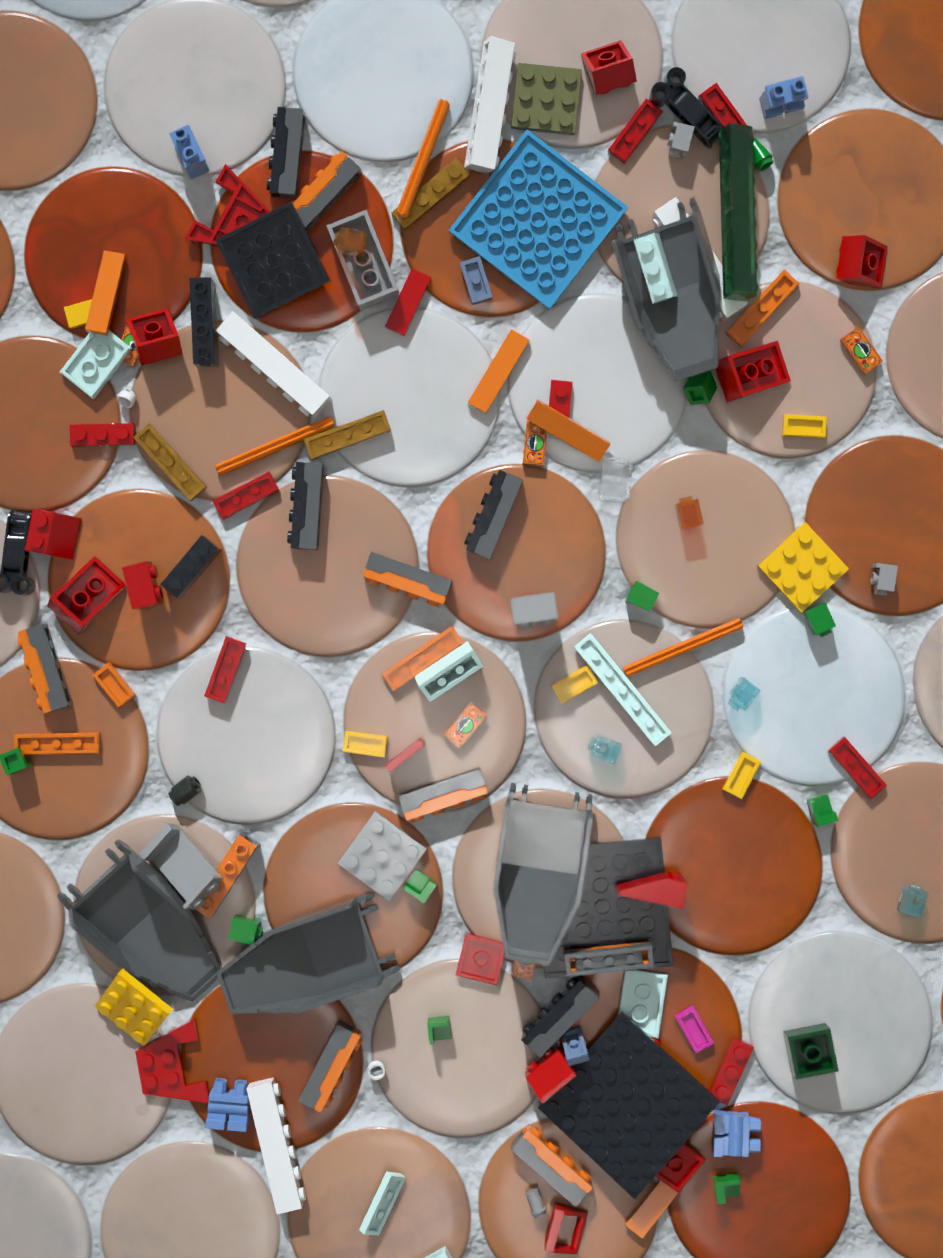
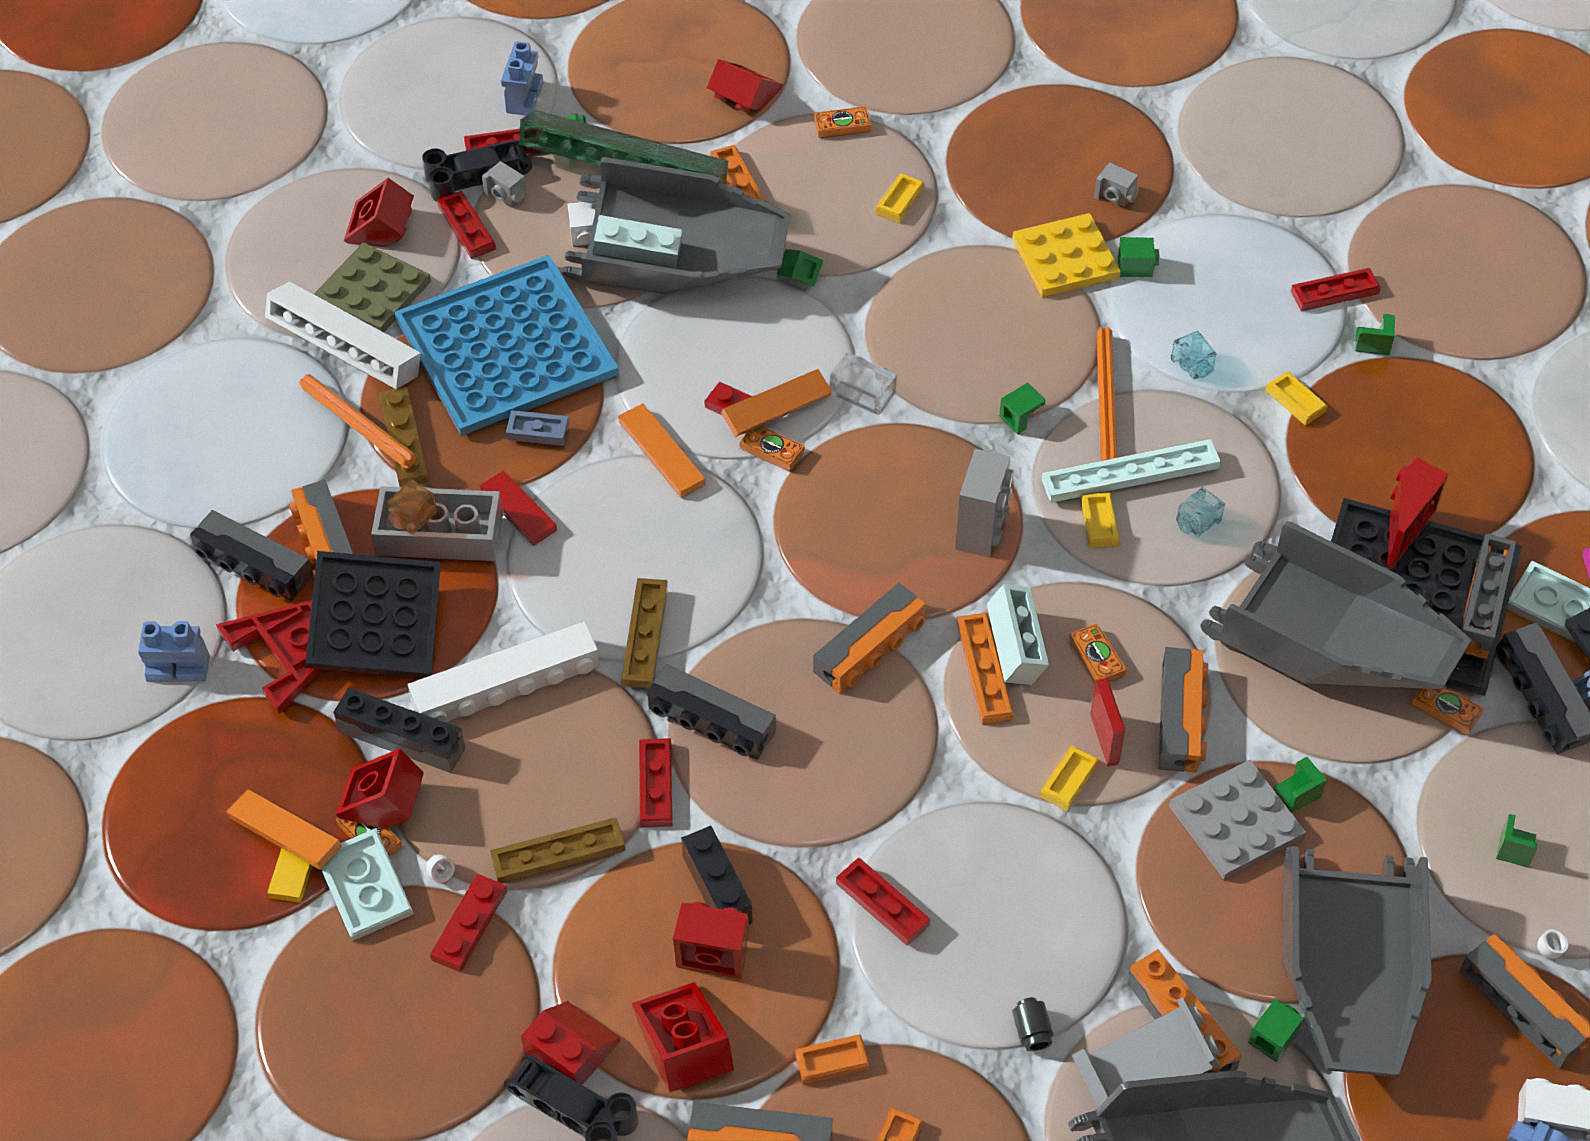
camera: 65 degrees left, 35 degrees down
(274, 446) = (609, 723): orange axle -> none
(481, 959) = (1432, 759): tile -> none
(494, 514) = (838, 516): piece -> none
(688, 513) = (944, 328): clear orange brick -> none
(752, 371) = (811, 217): red slope -> none
(905, 902) = (1524, 291): clear light blue brick -> none

